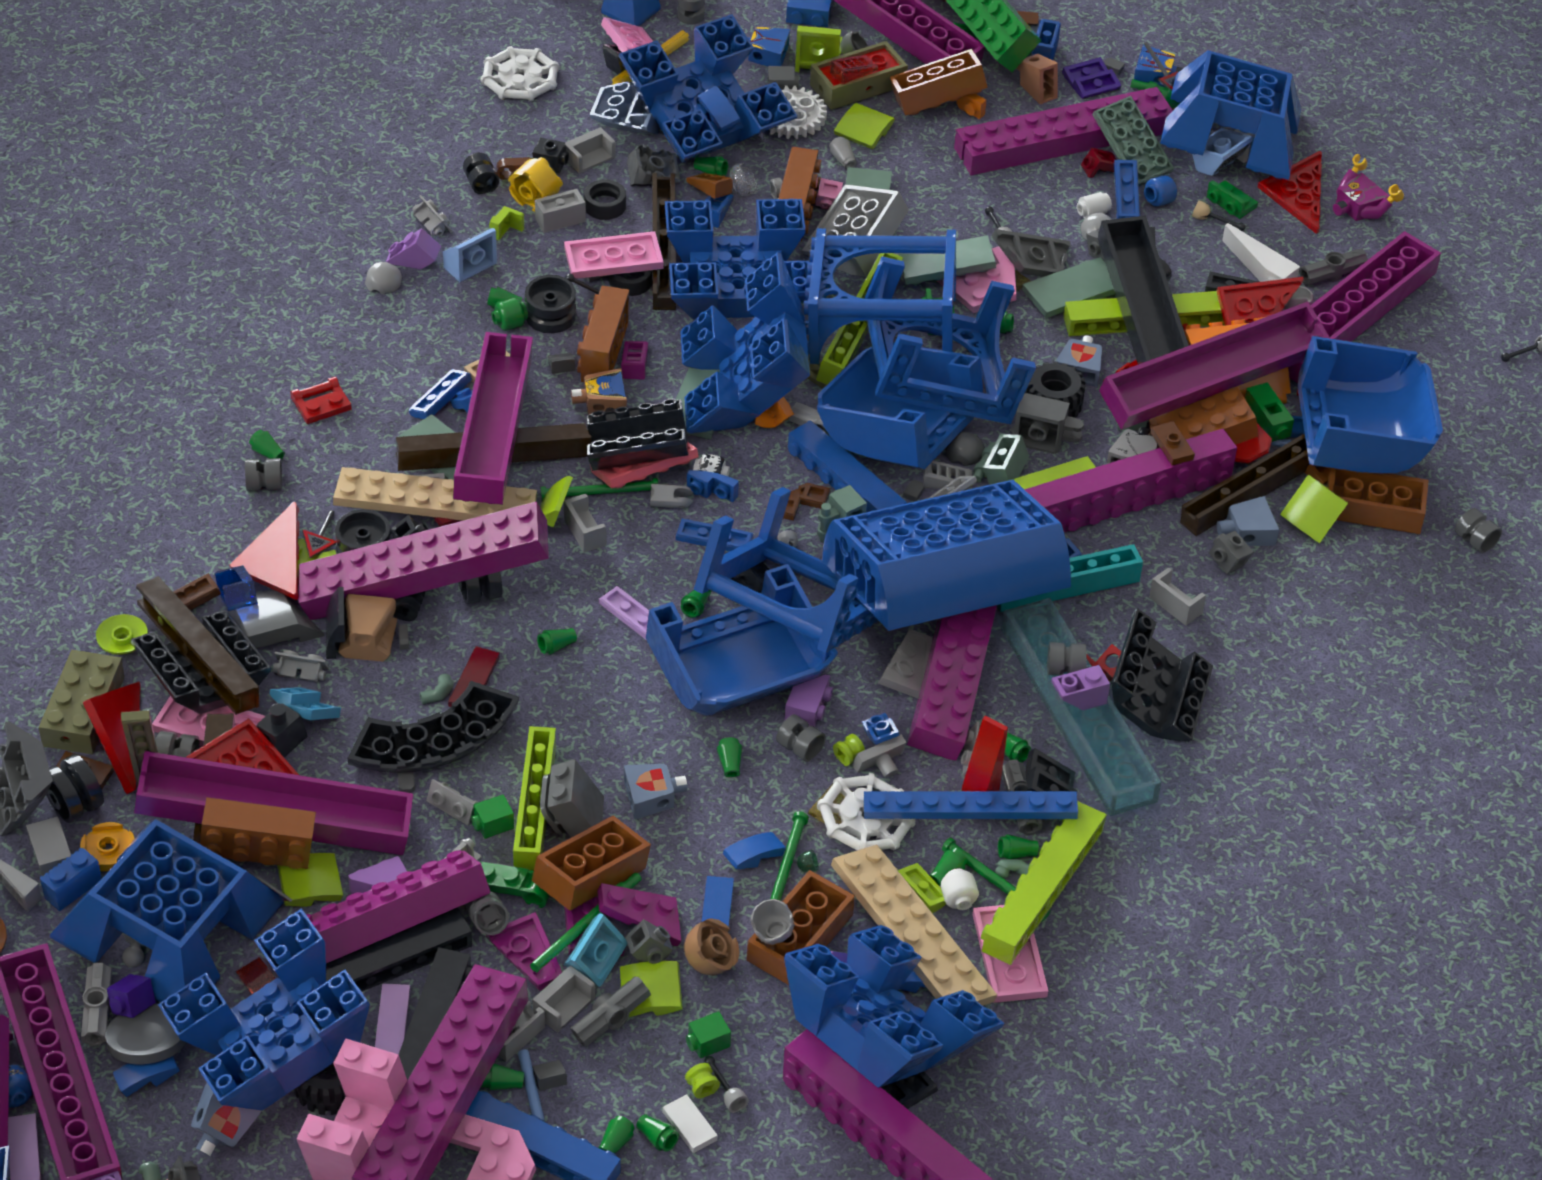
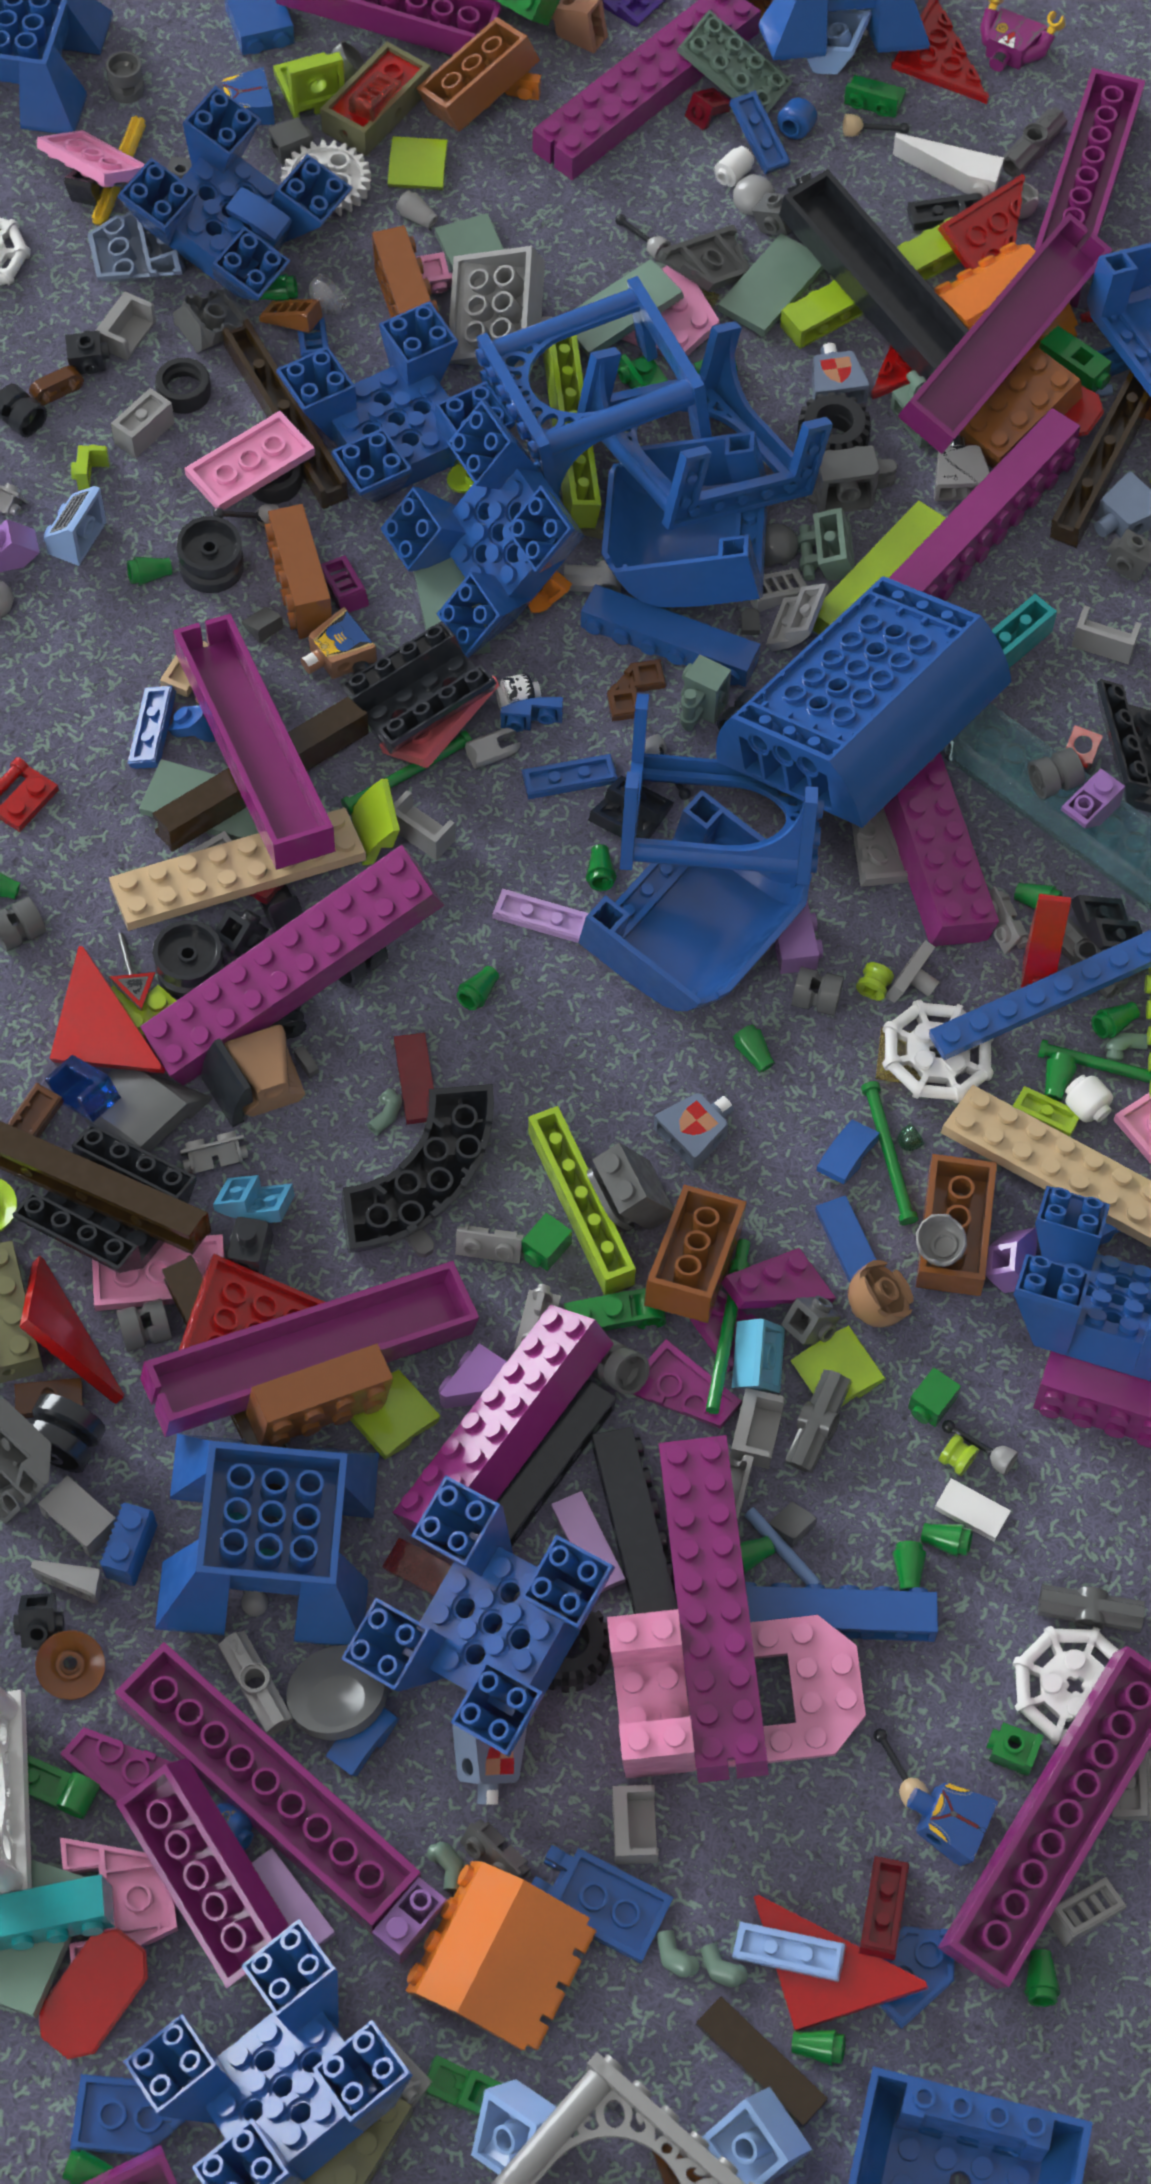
camera: 25 degrees left, 15 degrees up
(103, 834) = (146, 1464): light orange plate -> none
(131, 995) = (291, 1656): dark purple brick -> none
(139, 737) = (133, 1356): olive tile -> none
(284, 897) = (349, 1445): dark grey piece -> none
(509, 314) = (169, 587): green head -> none
(534, 181) = (94, 400): yellow brick -> none
(775, 187) = (372, 289): light grey tile -> none
(880, 728) = (896, 942): blue slope -> none
(1172, 443) = (1013, 451): reddish brown plate -> none

